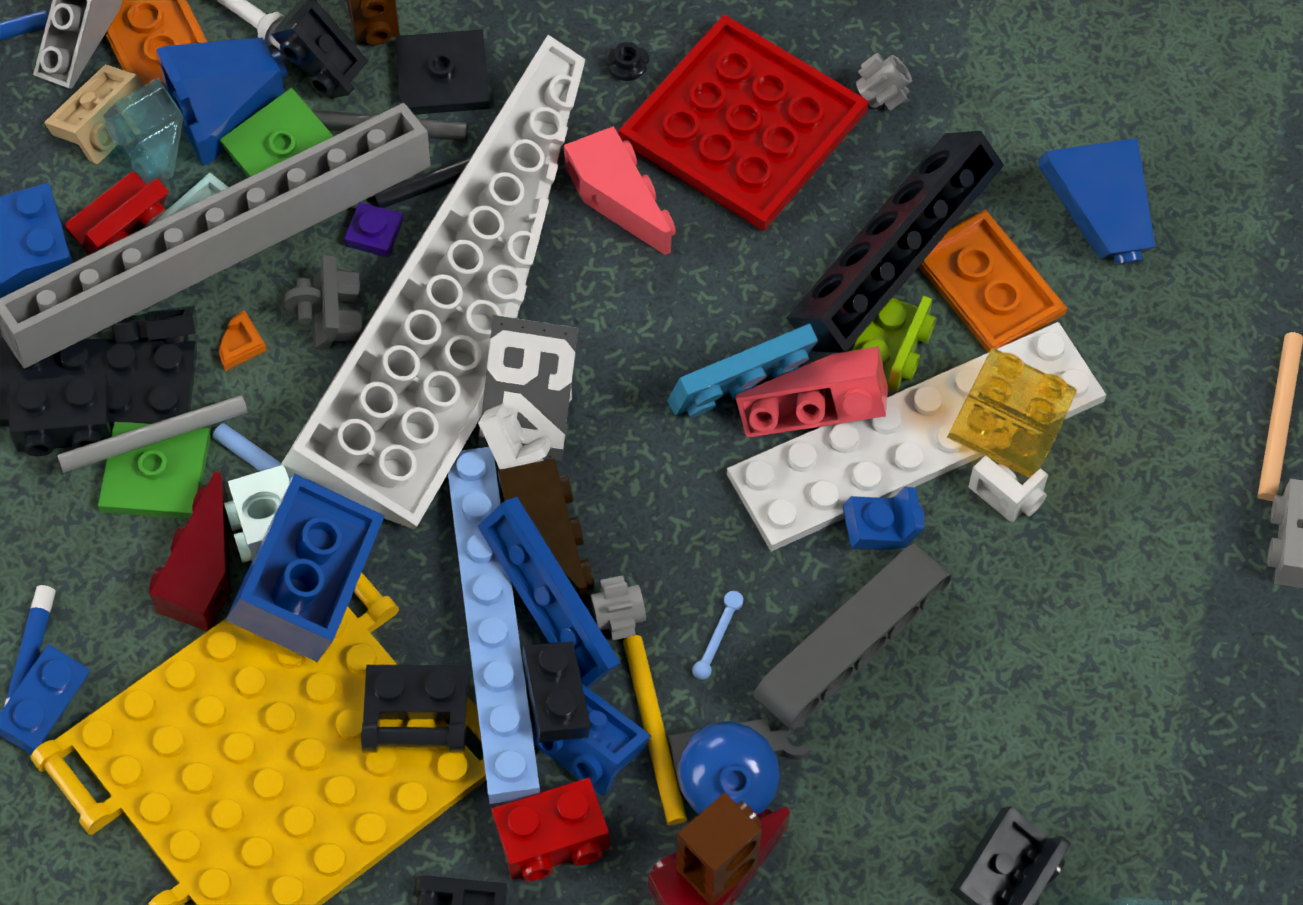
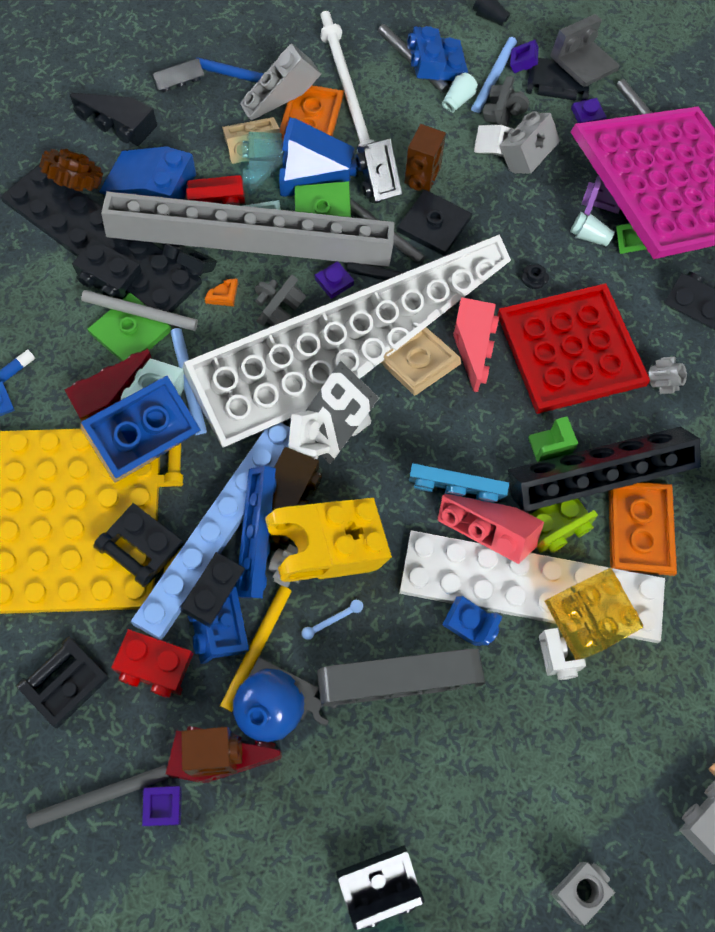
camera: 35 degrees right, 5 degrees up
(574, 259) = (421, 361): none -> tan plate
(650, 534) = (331, 539): none -> yellow brick
(813, 250) = (554, 442): none -> bright green panel
(1223, 733) = (567, 894): none -> light grey brick

